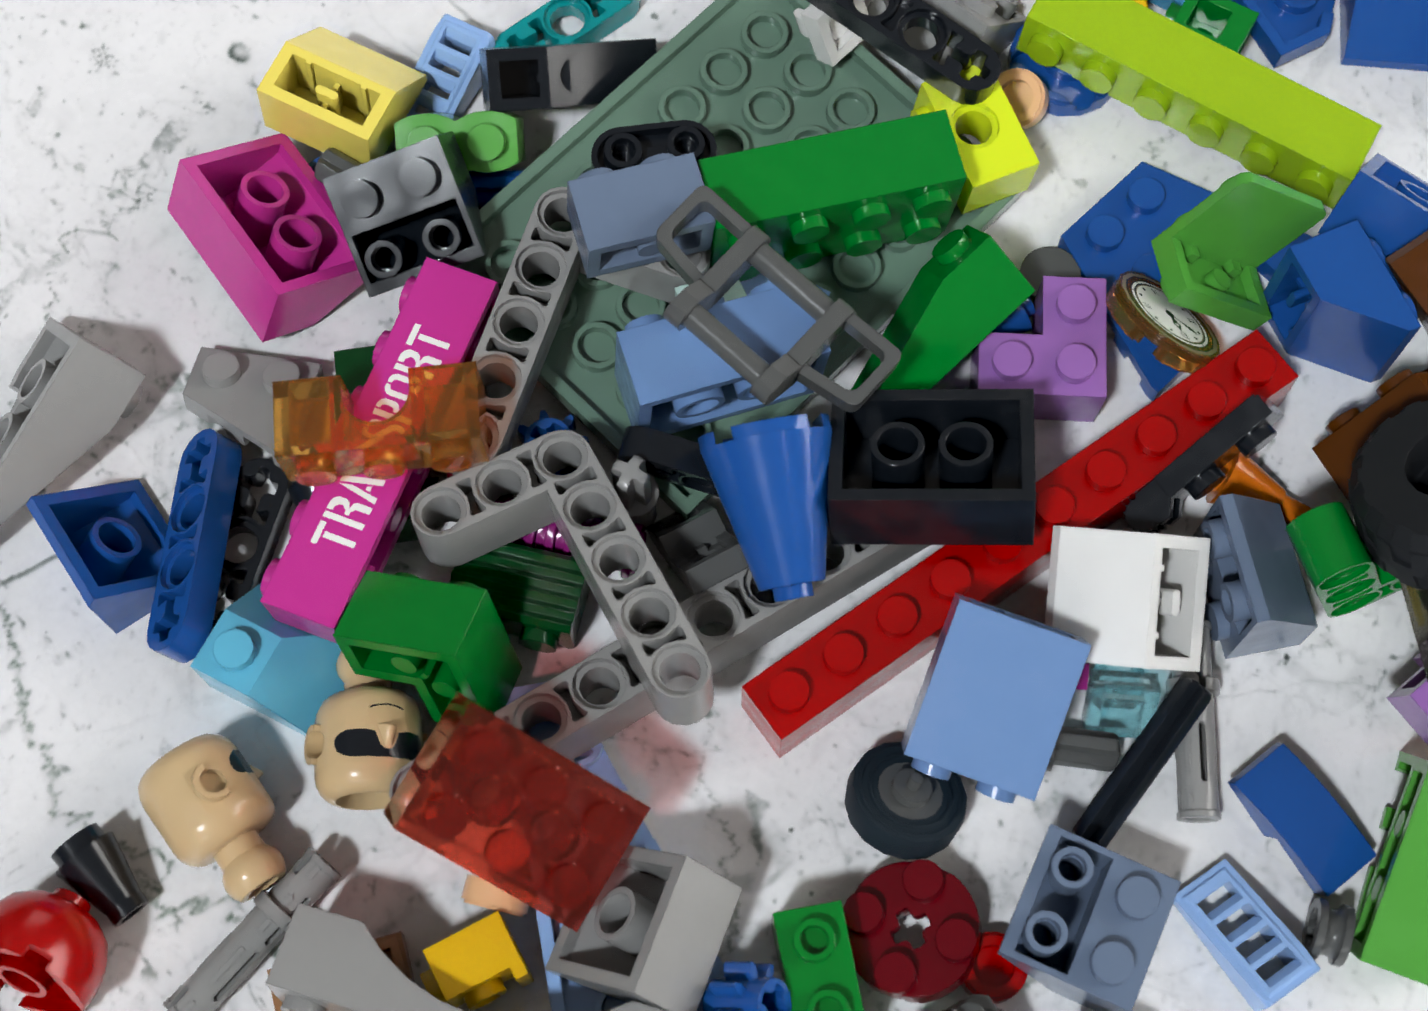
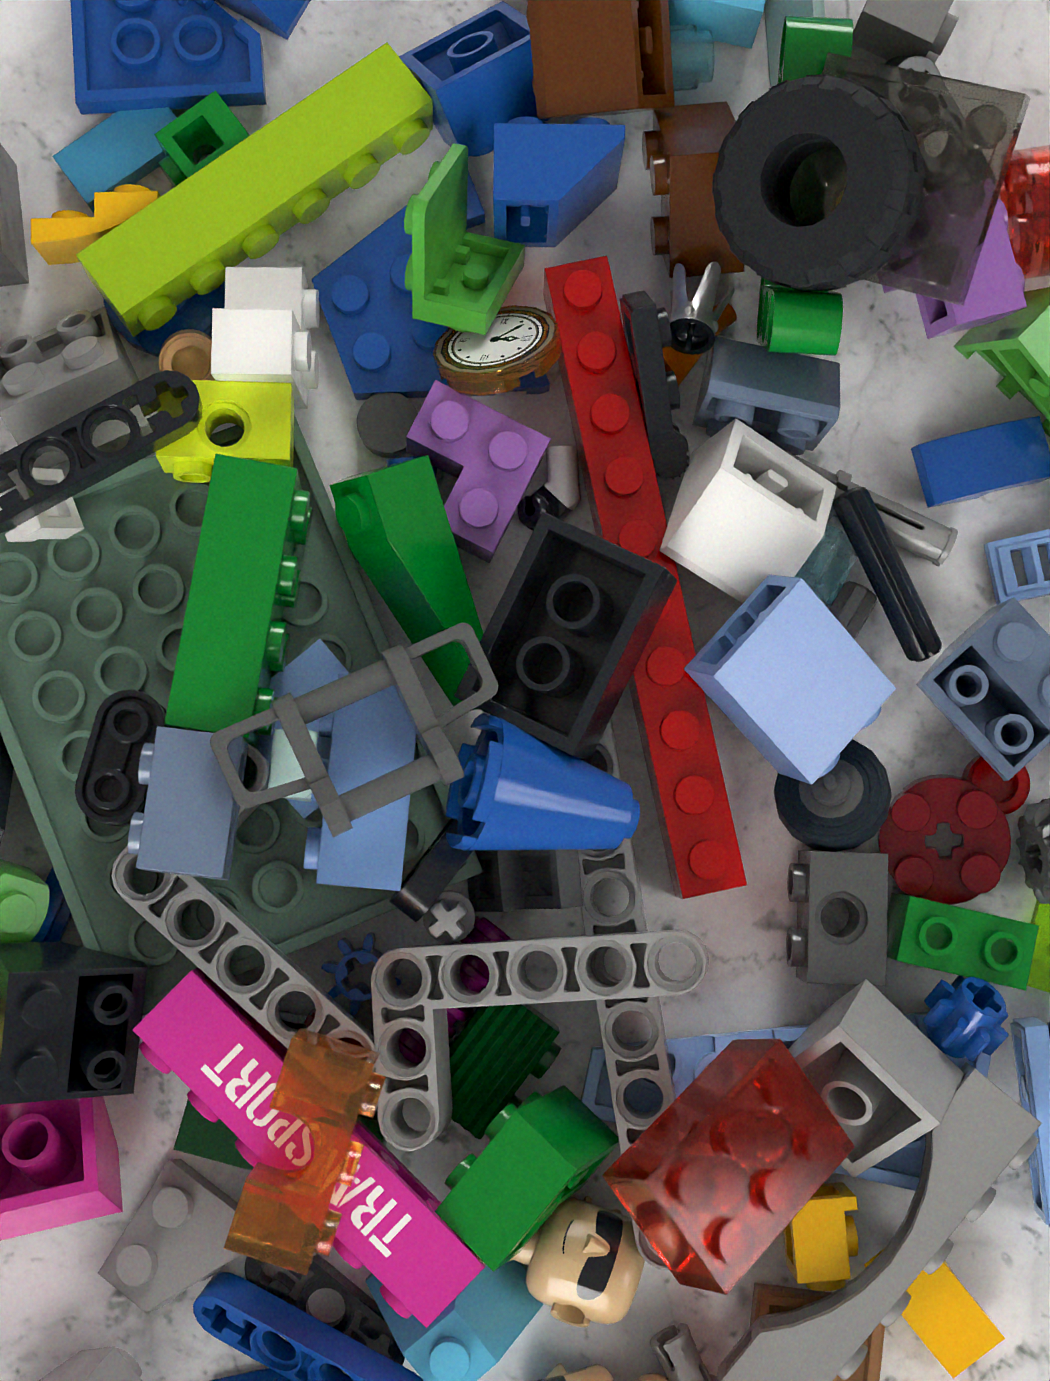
camera: 75 degrees left, 15 degrees up
(833, 849) = (861, 946): none -> dark grey brick
(1060, 443) = (561, 491): none -> arm
(1075, 138) = (266, 329): none -> white brick
(1280, 476) = (694, 322): none -> flat silver piece

